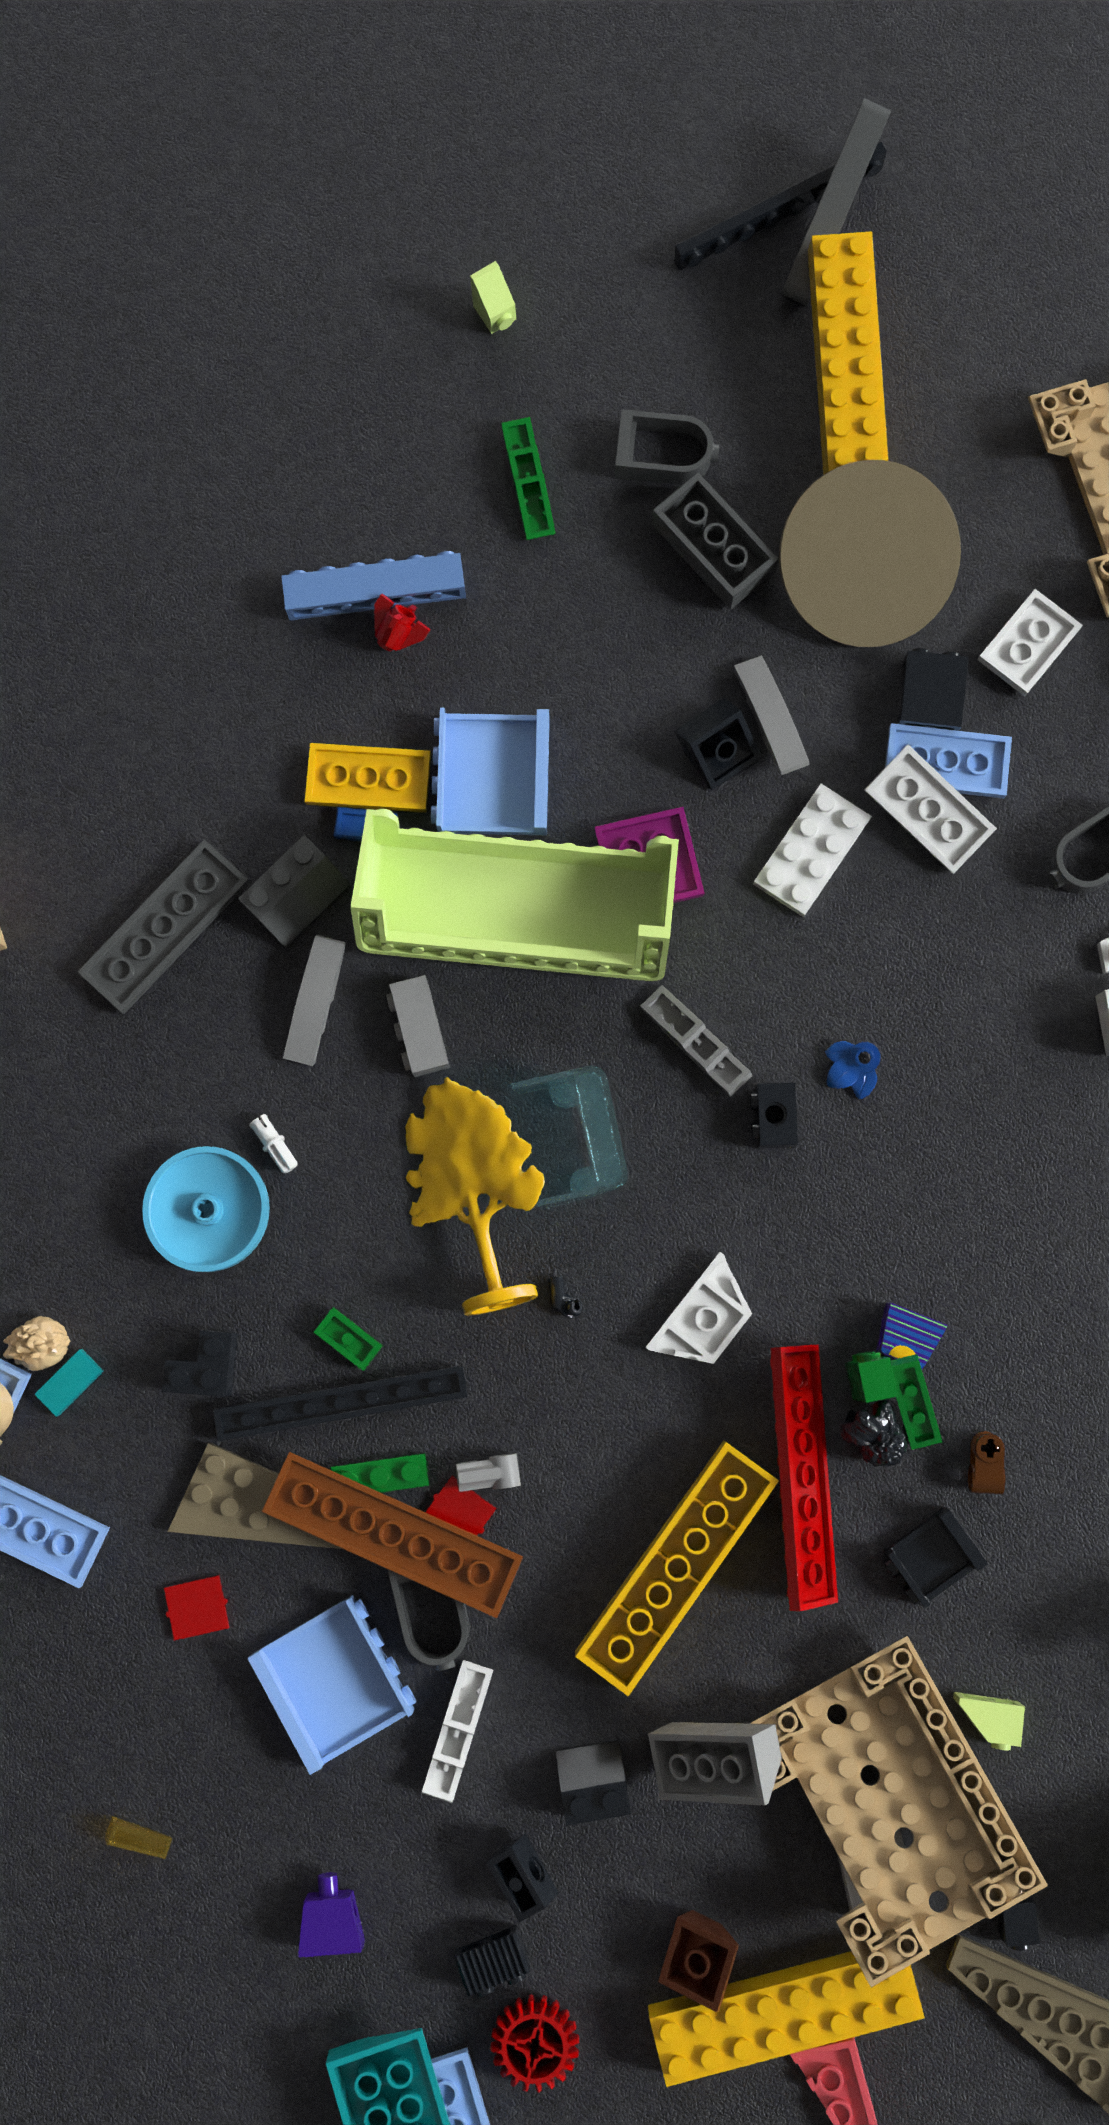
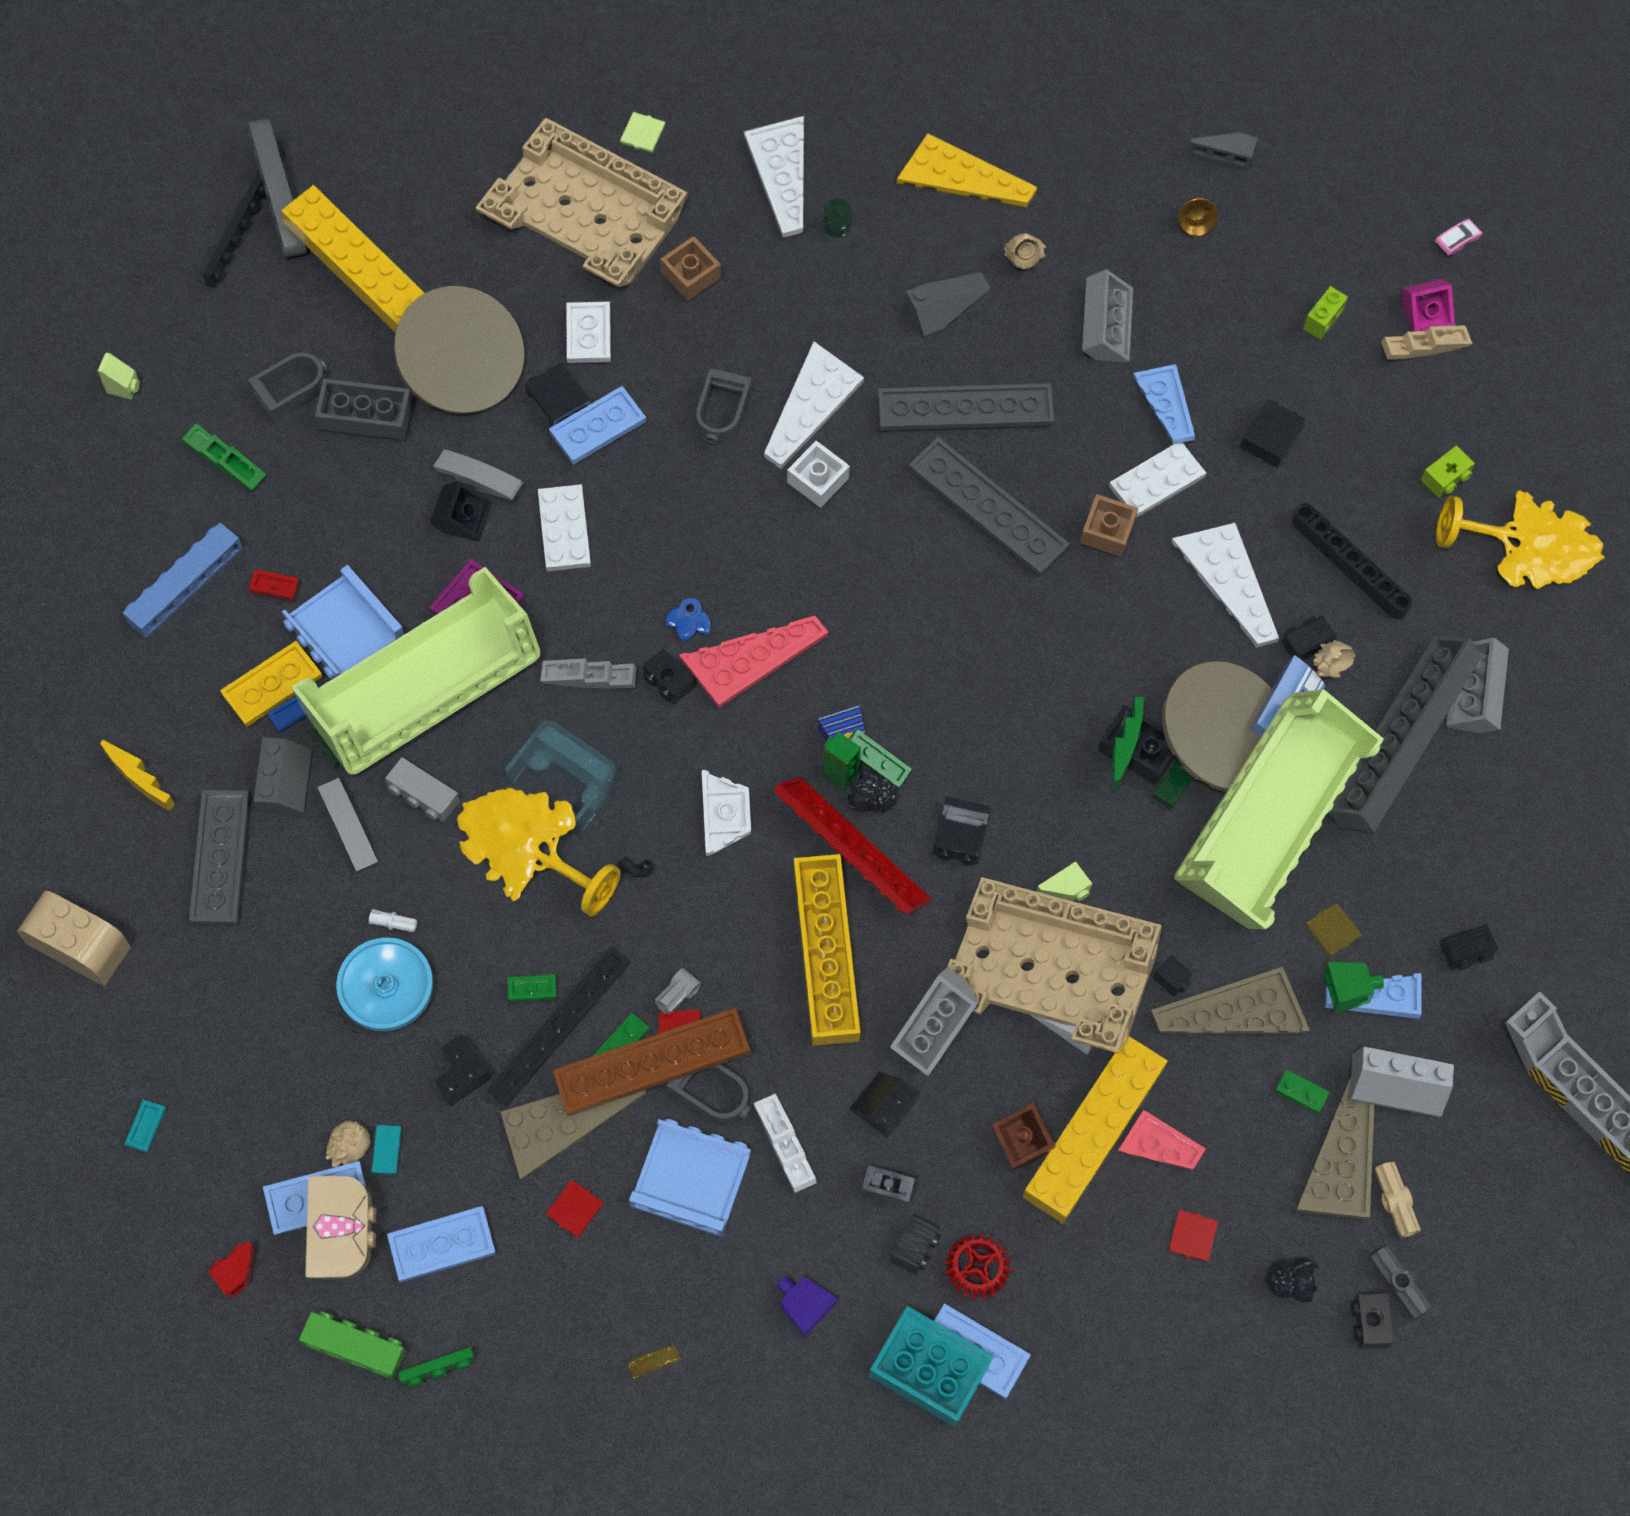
camera: 50 degrees left, 15 degrees down
(154, 760) = (133, 770): none -> yellow slope
(396, 626) = (216, 590): red brick -> none
(460, 668) = (274, 585): none -> red plate
(866, 1164) = (746, 660): none -> coral wing
(930, 809) = (610, 454): white plate -> none
(987, 1469) = (946, 763): reddish brown piece -> none

